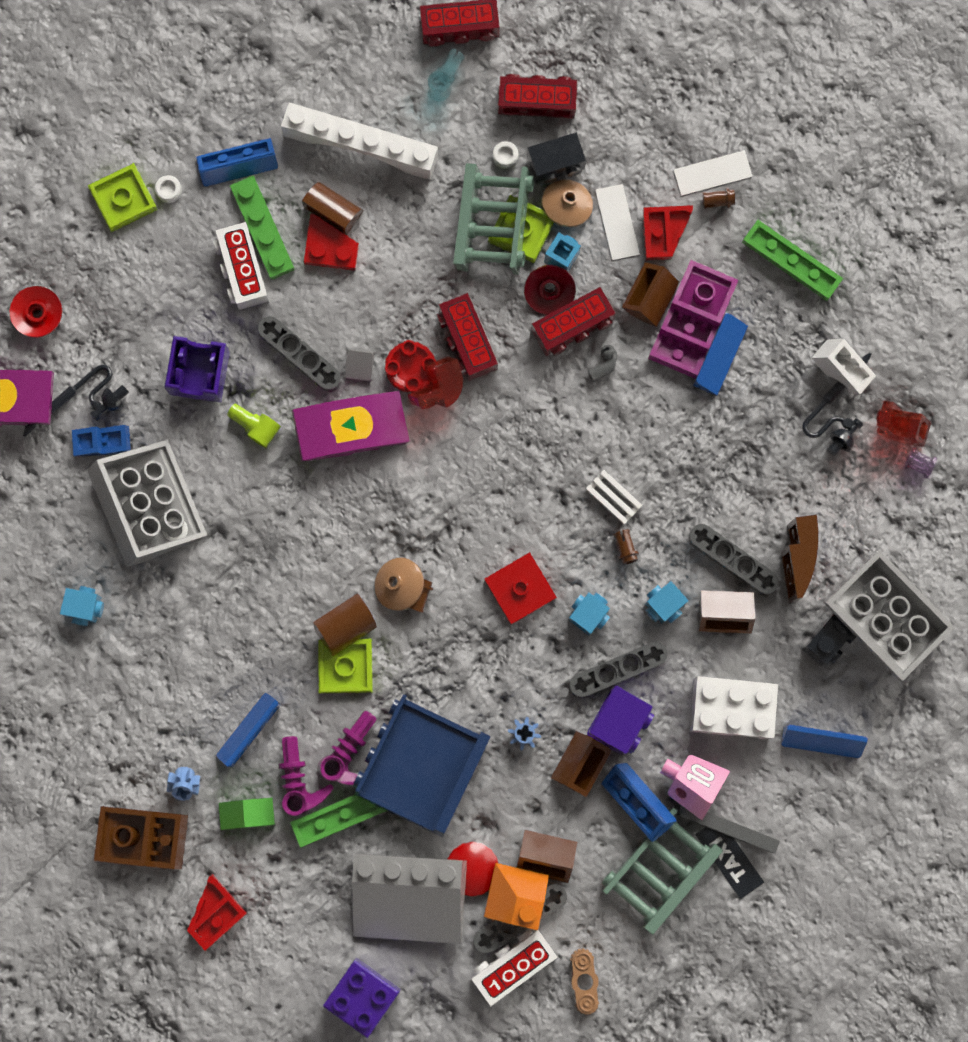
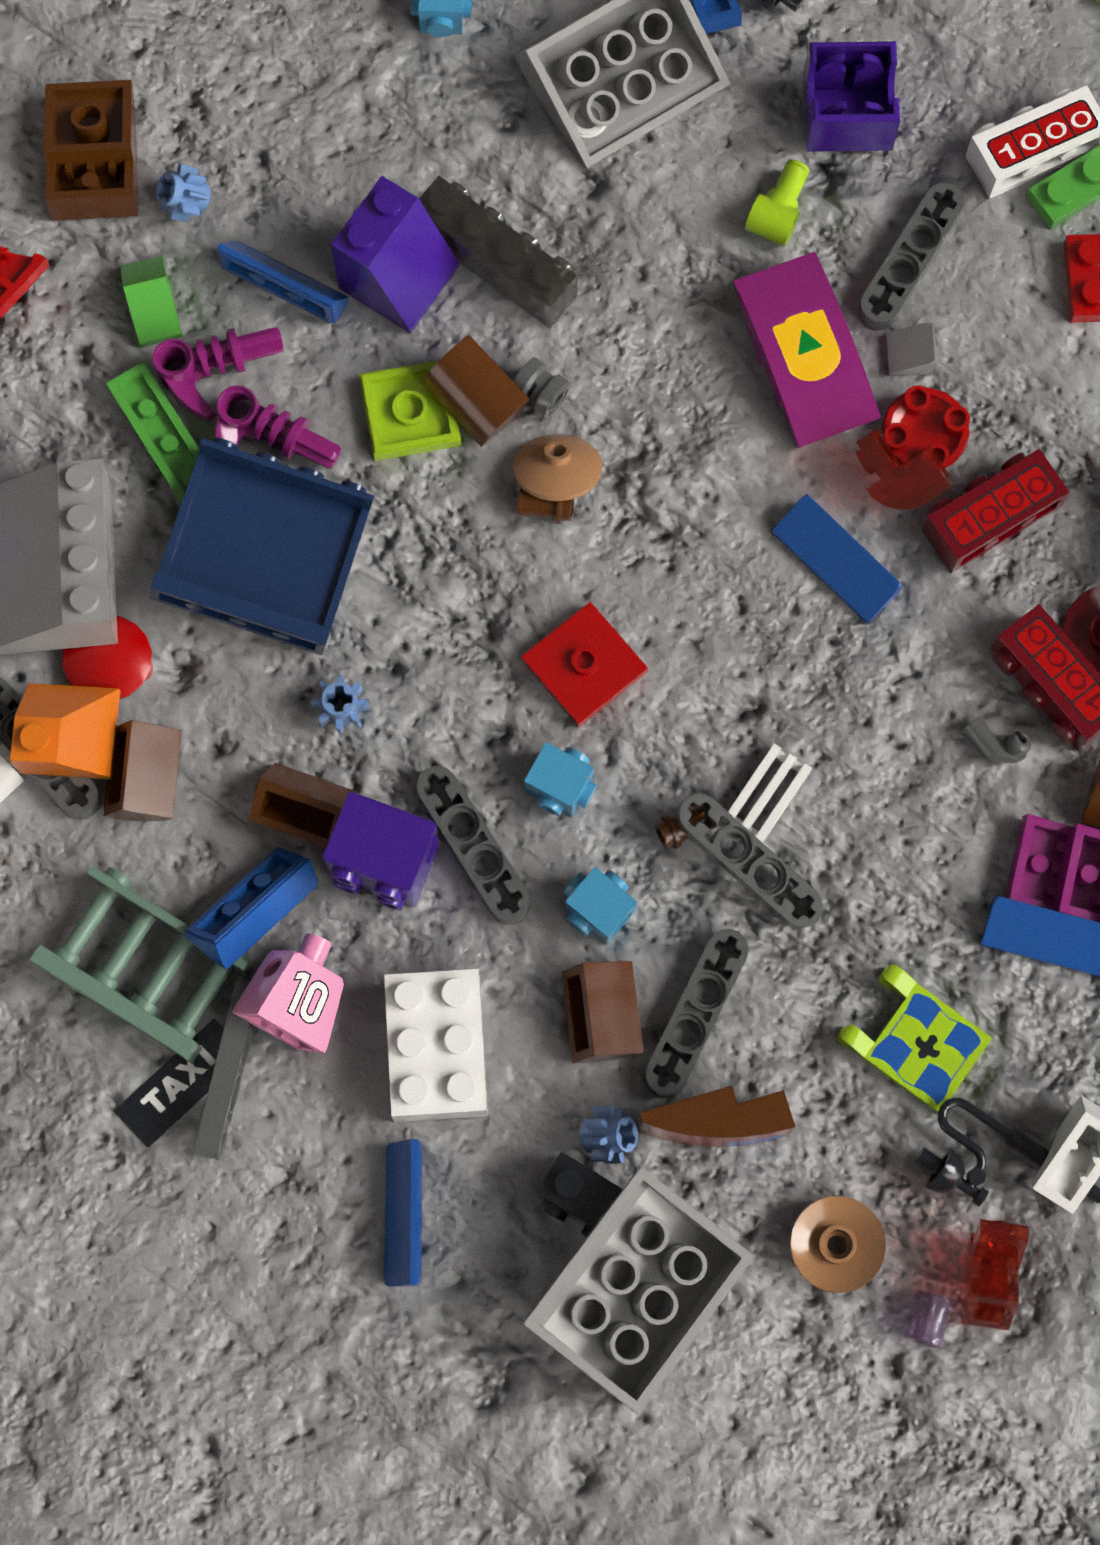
camera: 85 degrees right, 5 degrees down
(253, 659) = (393, 255): none -> dark purple slope
(256, 599) = (499, 254): none -> clear smoke brick
(347, 585) = (541, 387): none -> dark grey wheel
(481, 432) = (837, 559): none -> blue slope
(655, 516) = (745, 865): none -> dark grey beam
(769, 437) = (923, 1044): none -> lime flag
(797, 619) = (608, 1134): none -> medium blue gear
(886, 502) = (862, 1239): none -> medium nougat dish

